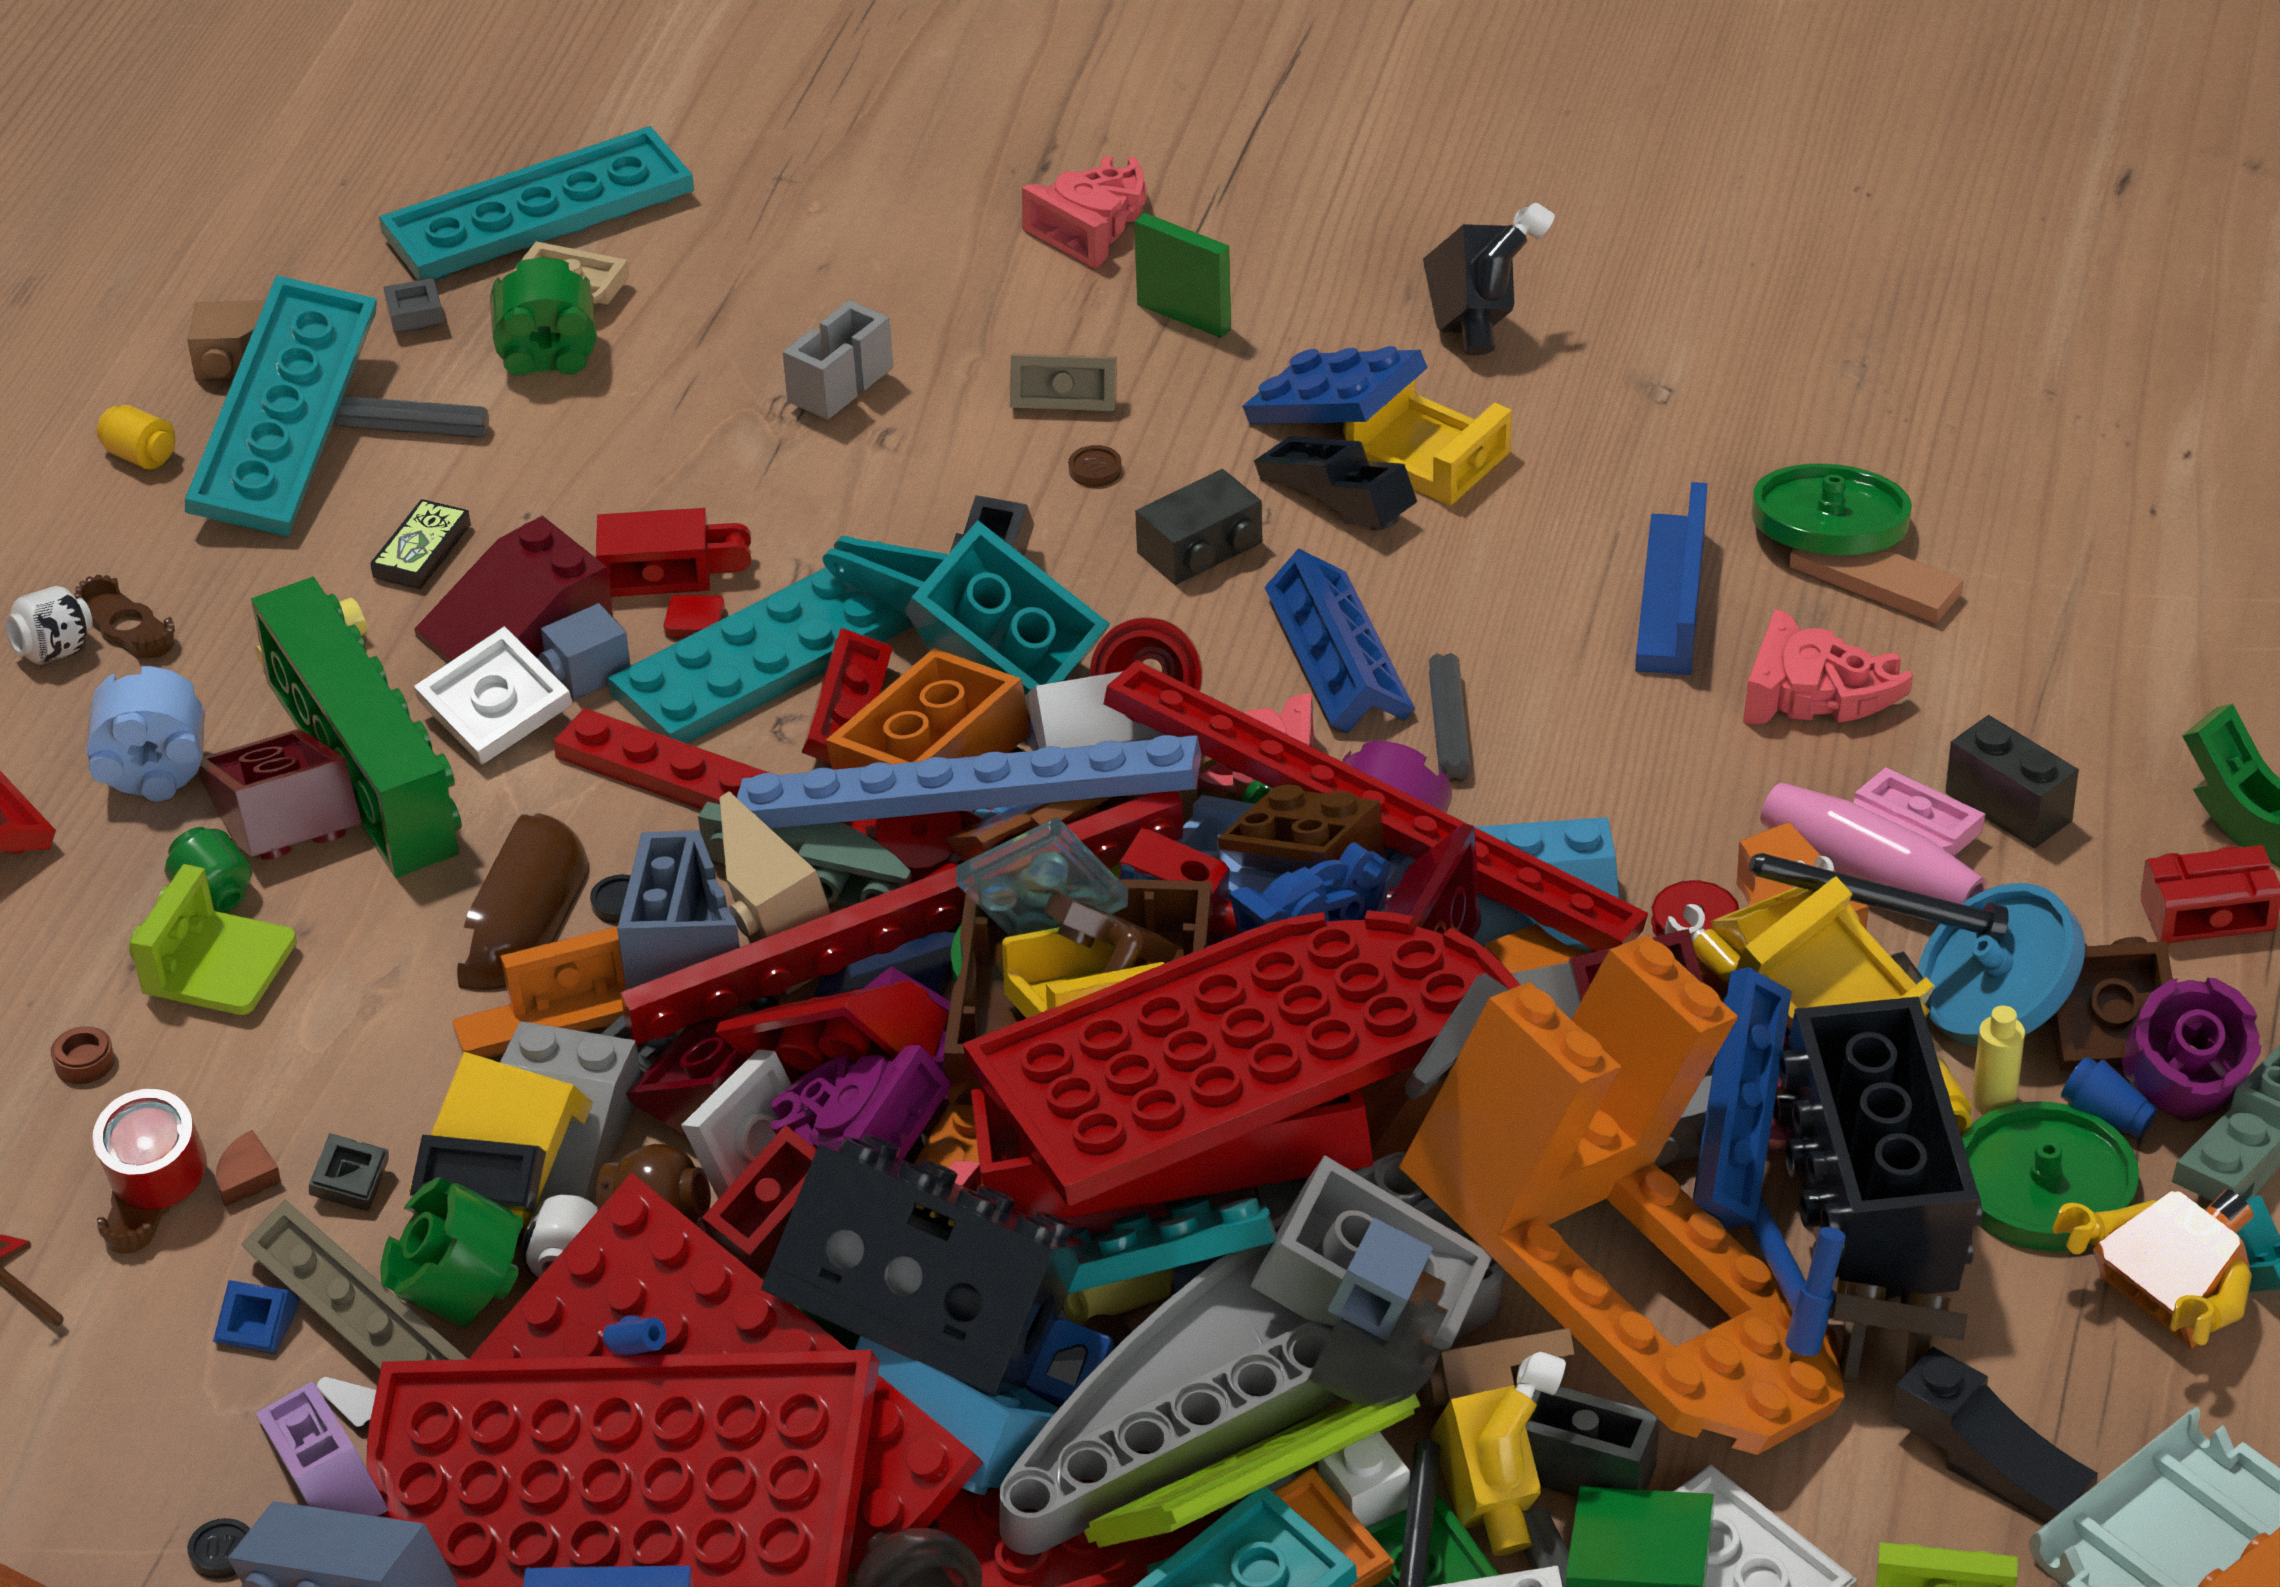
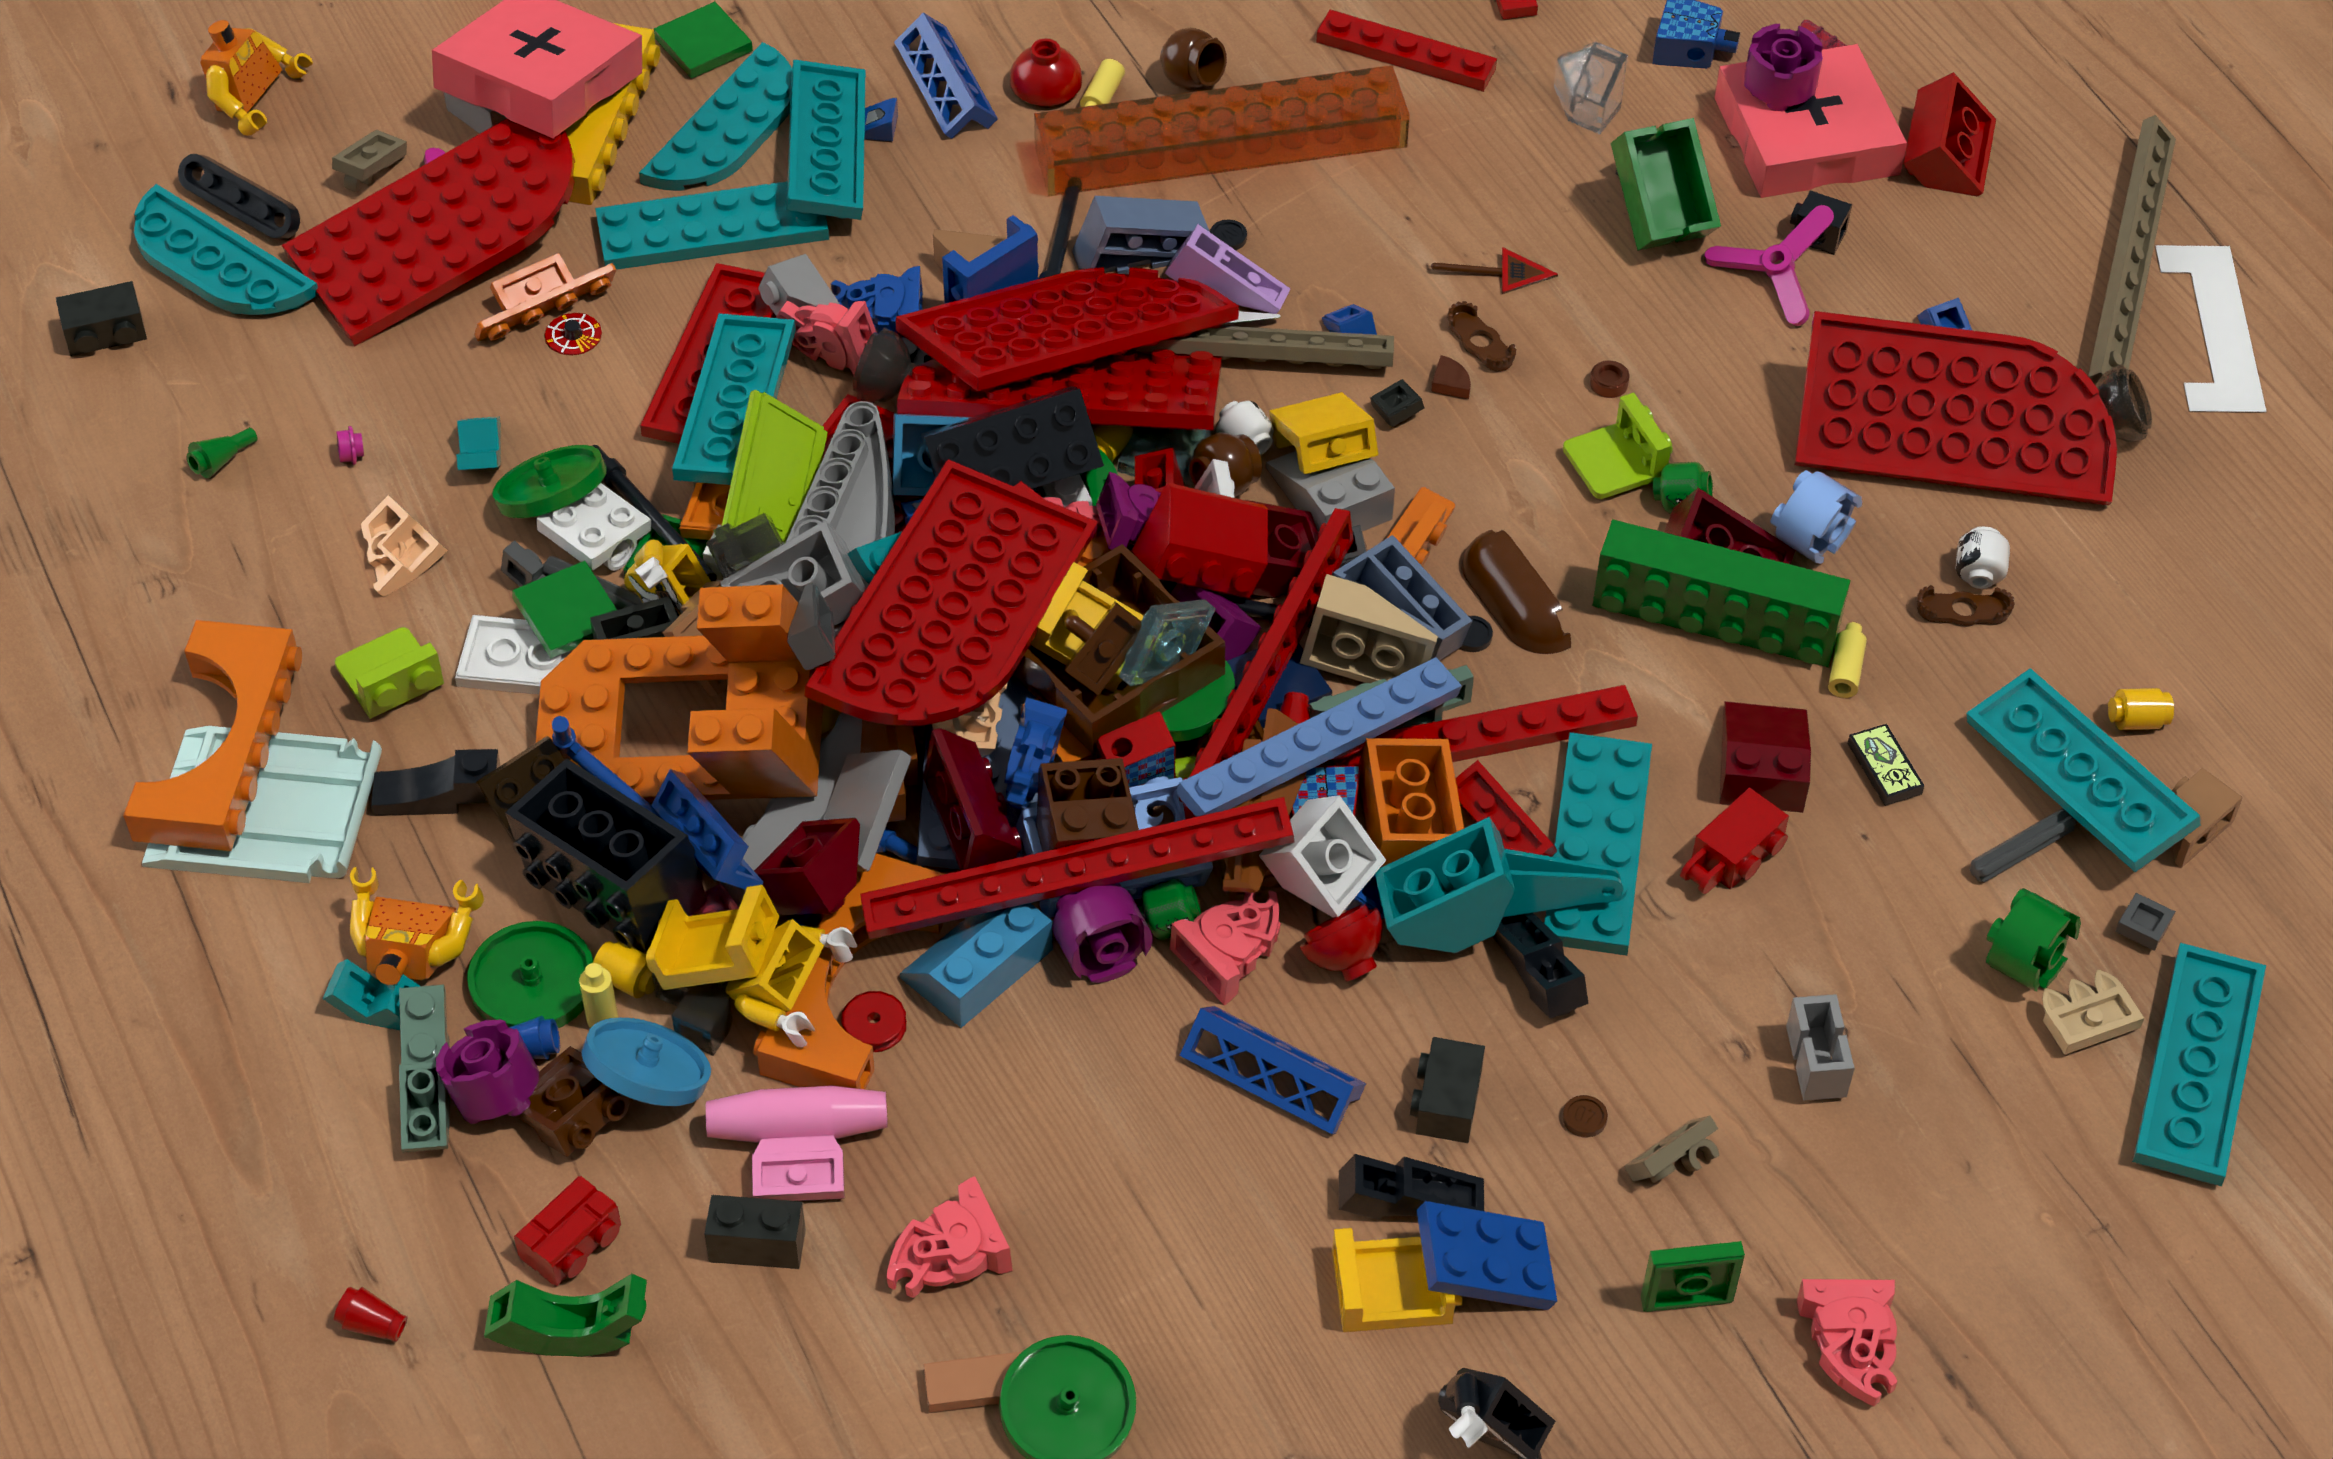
camera: 135 degrees right, 10 degrees up
(149, 1149) = (1486, 330): piece -> none
(452, 1252) = (1274, 368): green brick -> none
(493, 695) = (1689, 680): white plate -> none
(495, 1170) = (1307, 401): black tile -> none
(585, 650) = (1683, 746): sand blue brick -> none
(634, 1336) = (1118, 348): blue arm -> none
(691, 614) = (1670, 830): red piece -> none
(1380, 1279) = (759, 537): sand blue brick -> none
(1449, 716) = (1152, 1062): dark grey axle -> none
(1672, 588) = (1112, 1264): blue fence -> none
(1988, 921) = (725, 1000): black bar -> none

